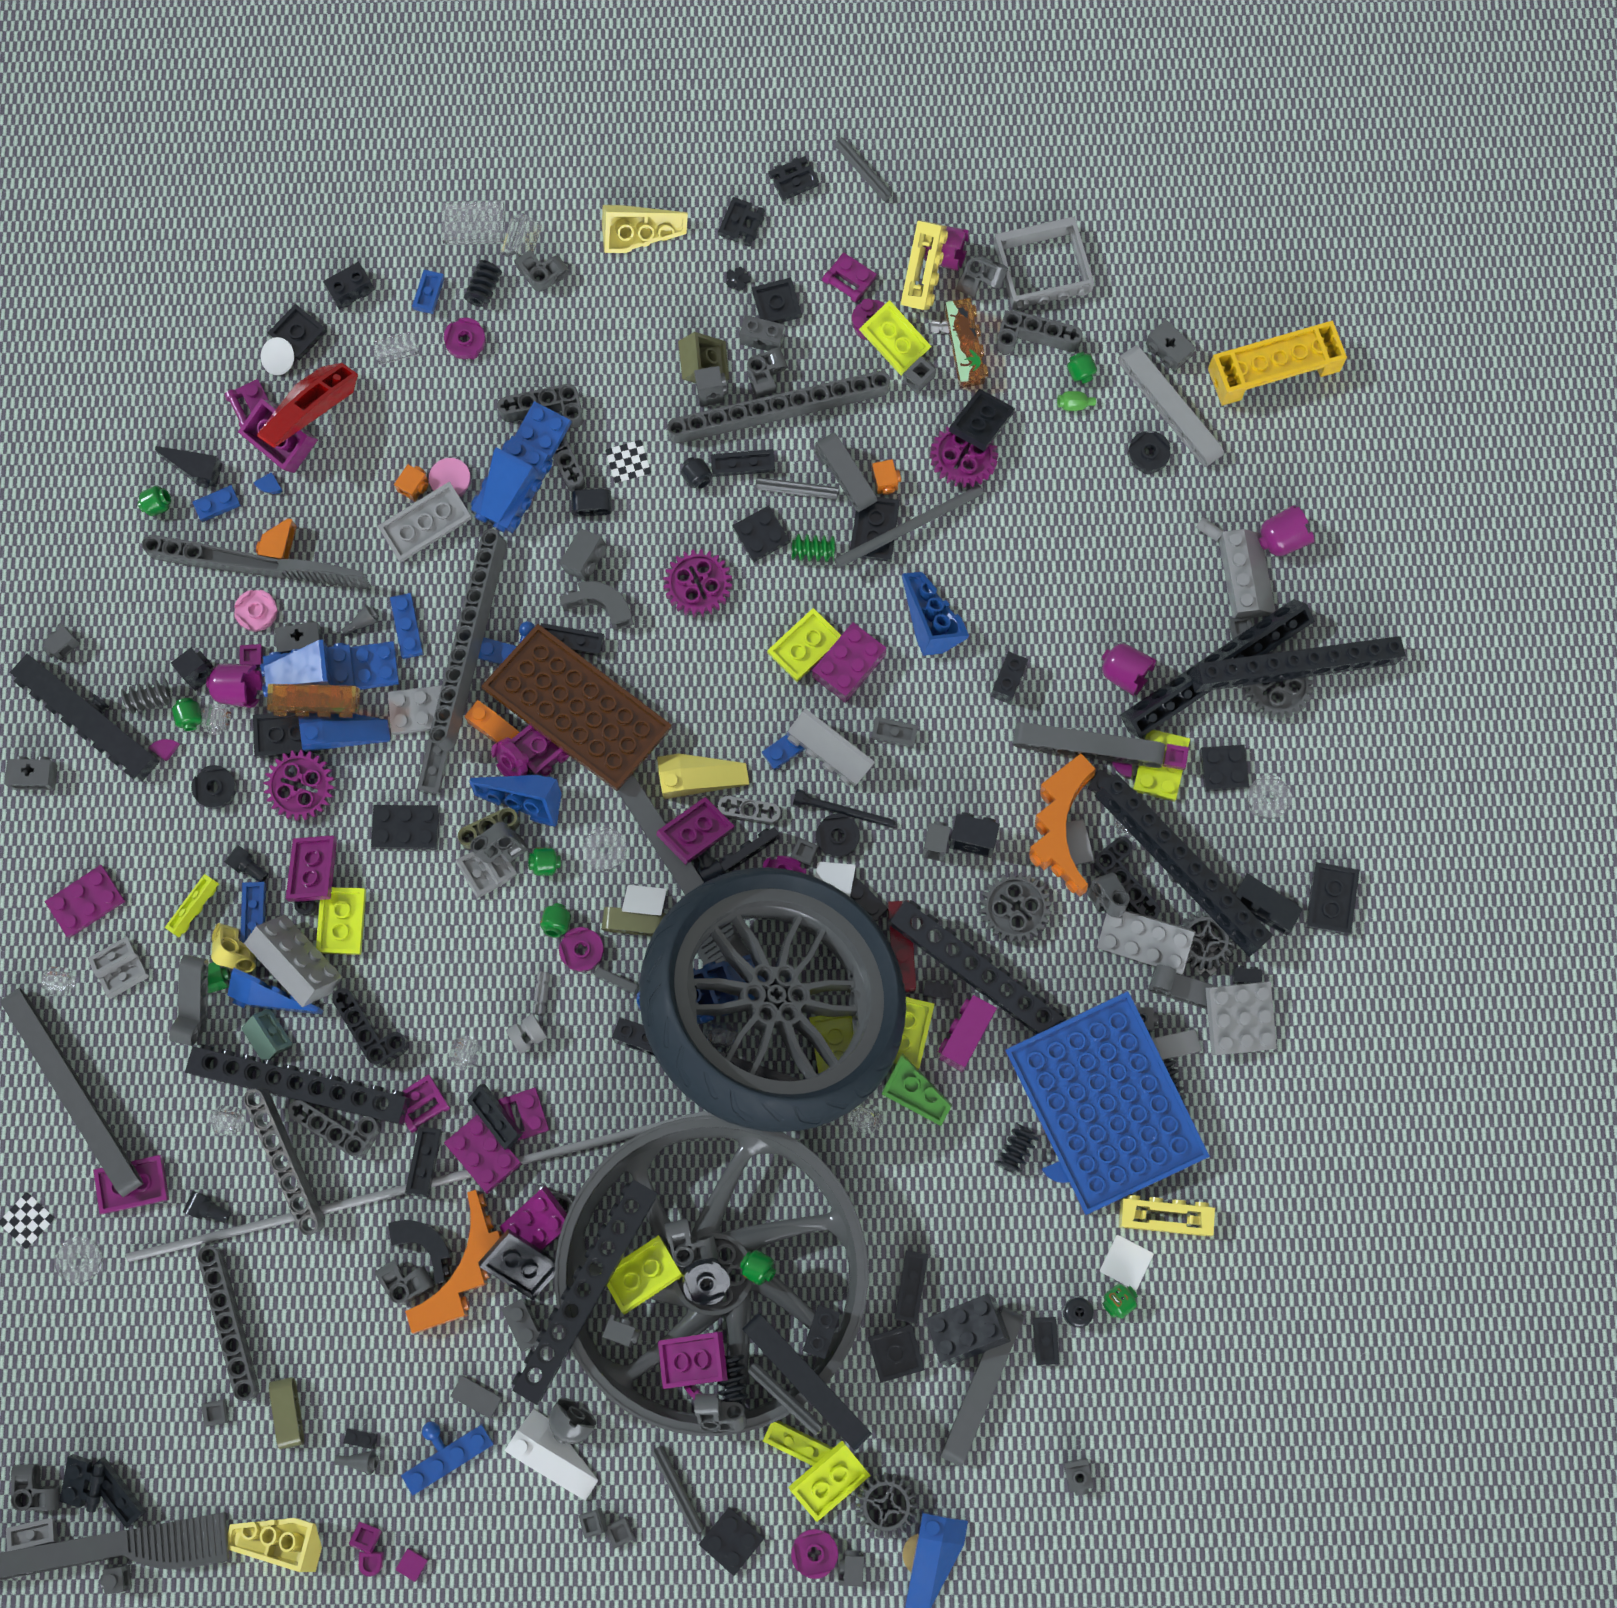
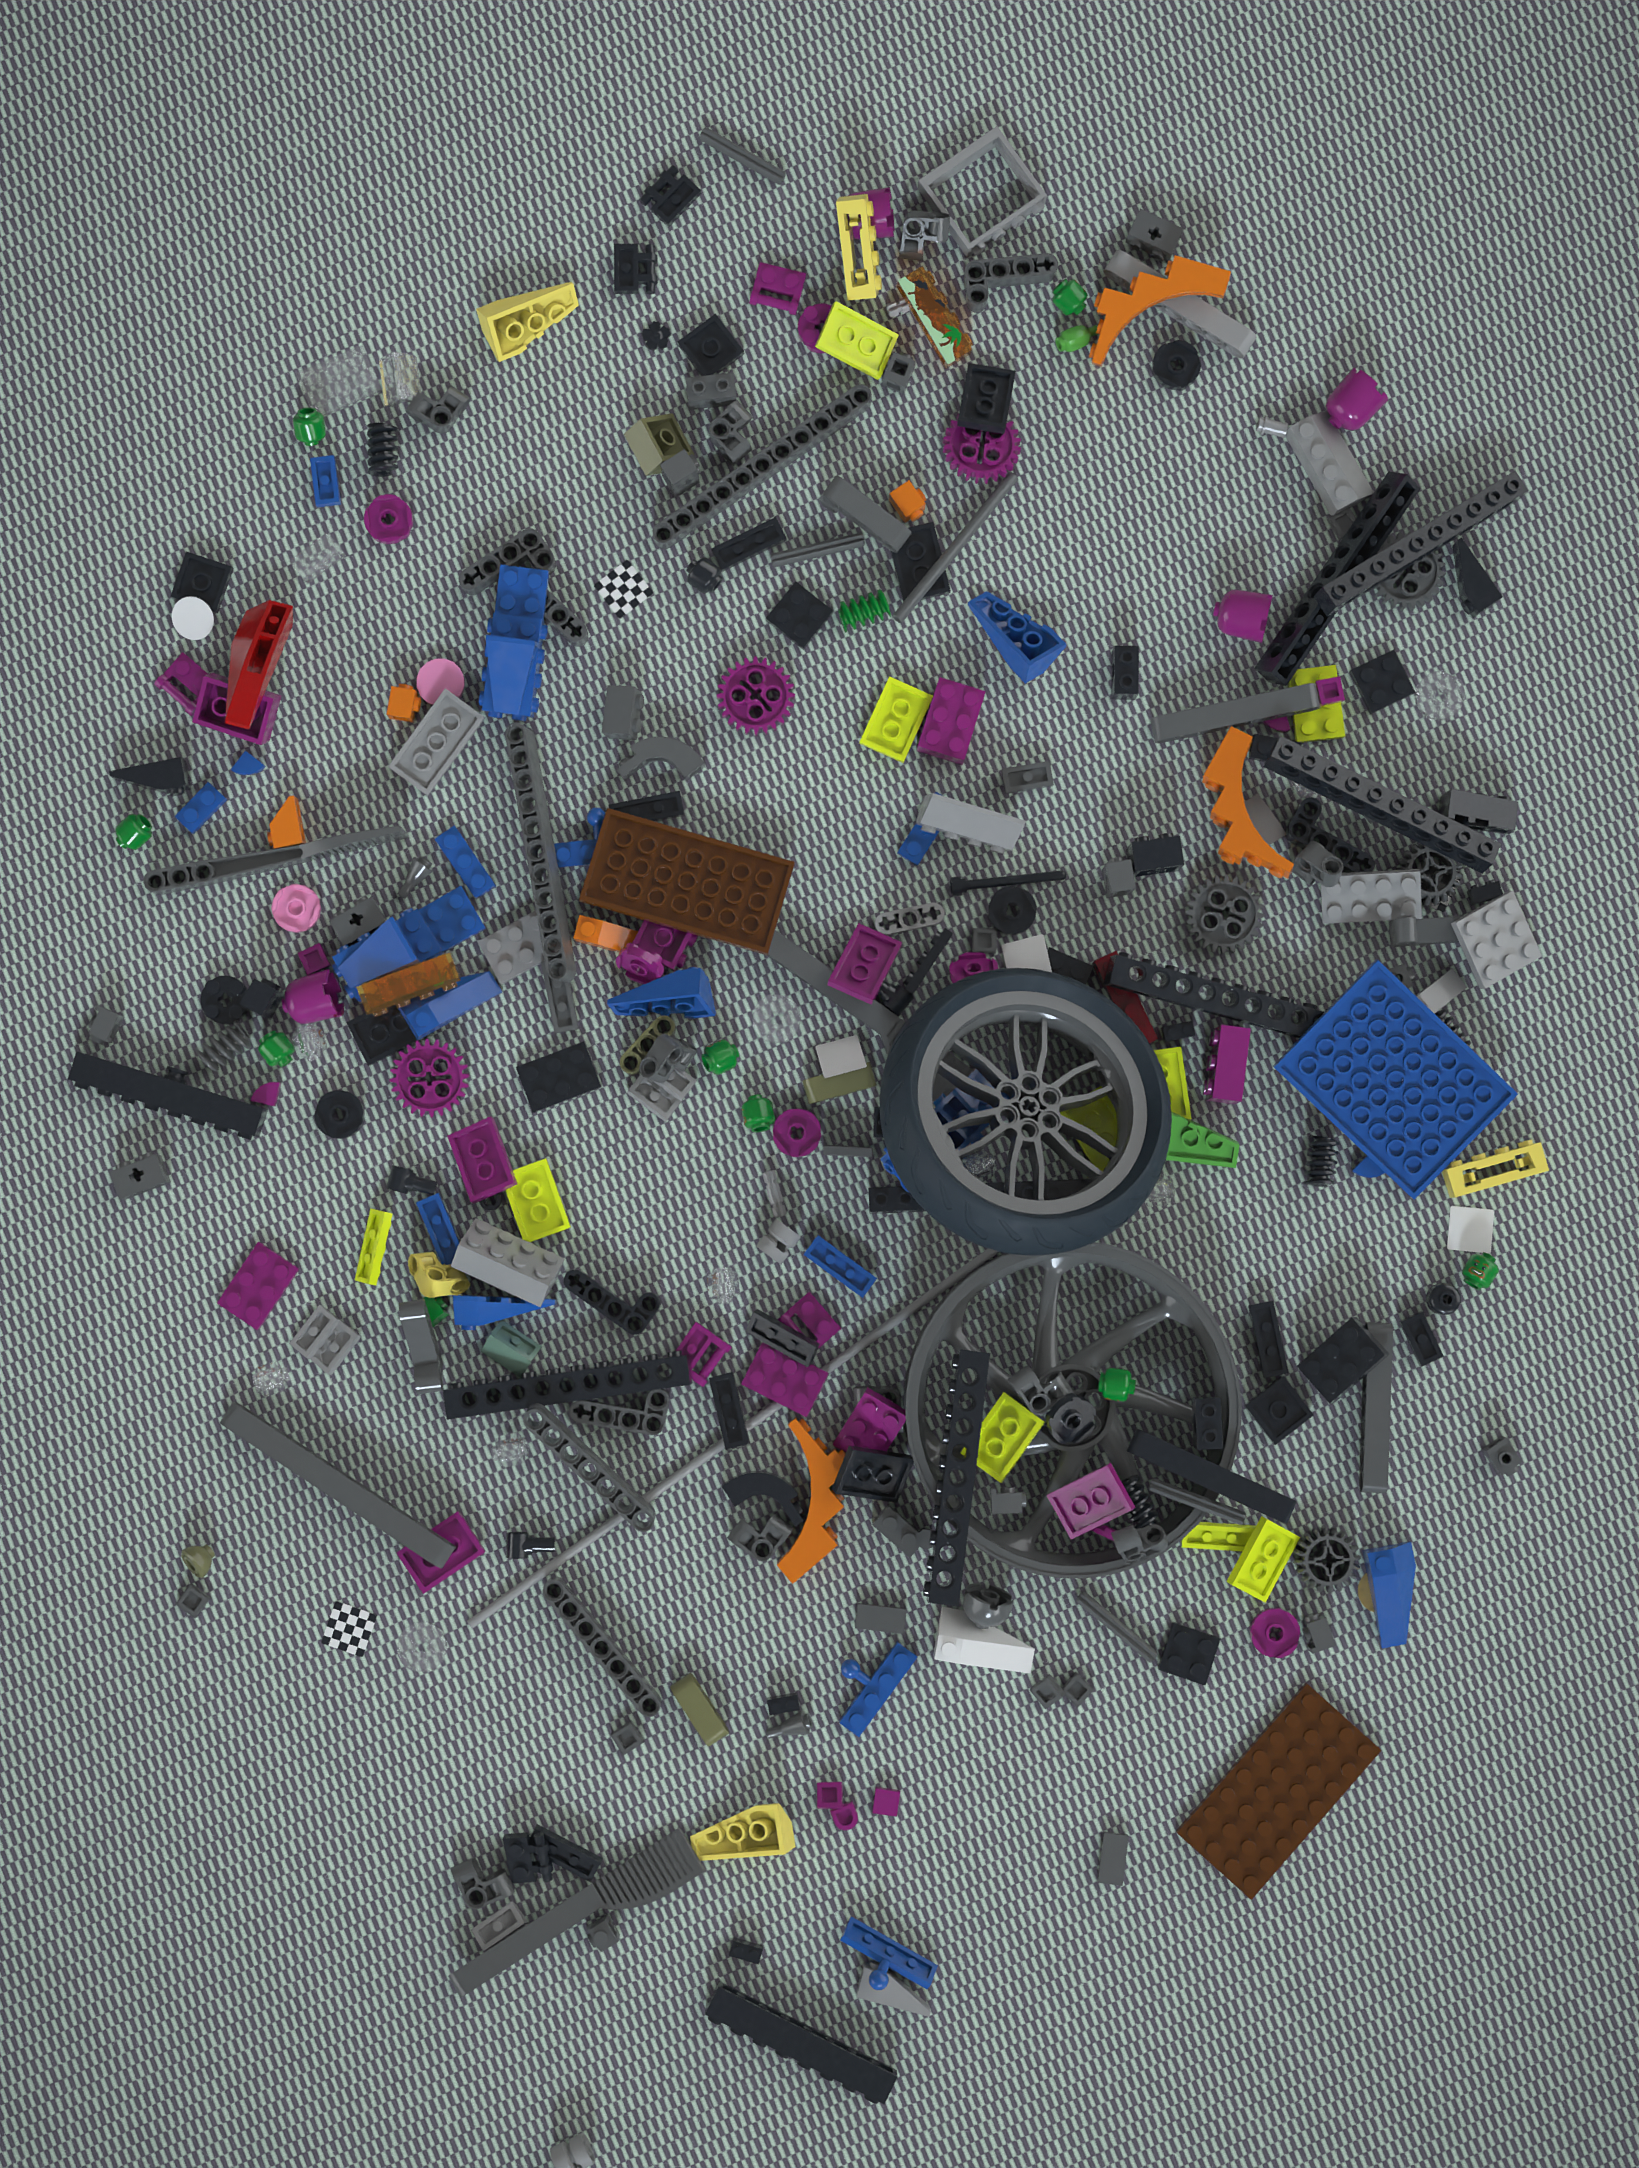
camera: 25 degrees left, 10 degrees up
(154, 656) = (214, 991): none -> black plate
(348, 285) = (235, 508): black brick -> none
(433, 245) = (309, 426): none -> green head
(570, 1076) = (840, 1266): none -> blue plate
(591, 502) = (605, 651): black beam -> none
(692, 775) = (836, 903): light yellow wedge -> none
(1146, 383) = (1119, 309): none -> orange arch
(1276, 359) = (1276, 211): yellow plate -> none
(1332, 898) = (1542, 778): black plate -> none
(1333, 720) = (1474, 584): none -> black slope

